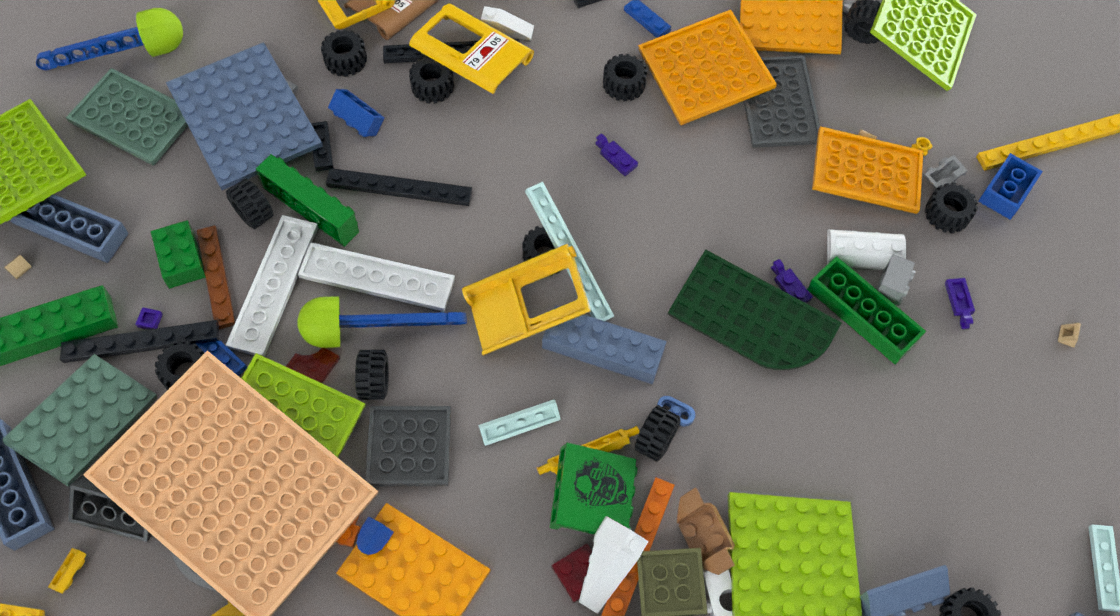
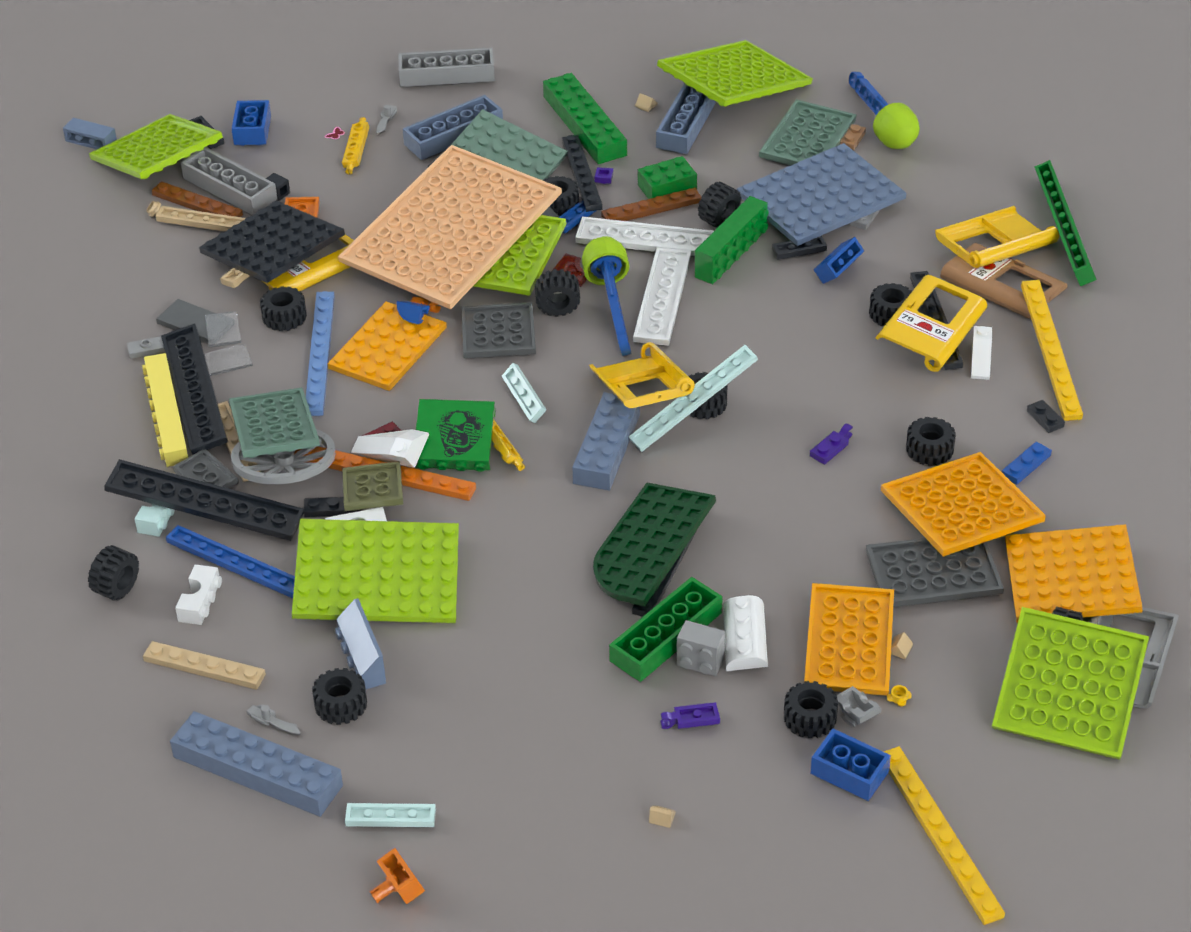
camera: 90 degrees right, 20 degrees down
(64, 576) = (393, 171): yellow plate -> none
(144, 77) = (853, 136): none -> medium nougat plate
(344, 63) = (910, 246): black tyre -> none
(399, 187) = (764, 303): black plate -> none
(657, 433) = (512, 470): black tyre -> none
(678, 408) = (543, 494): medium blue plate -> none
(705, 530) = (422, 509): medium nougat piece -> none
(789, 282) = (702, 574): dark purple plate -> none

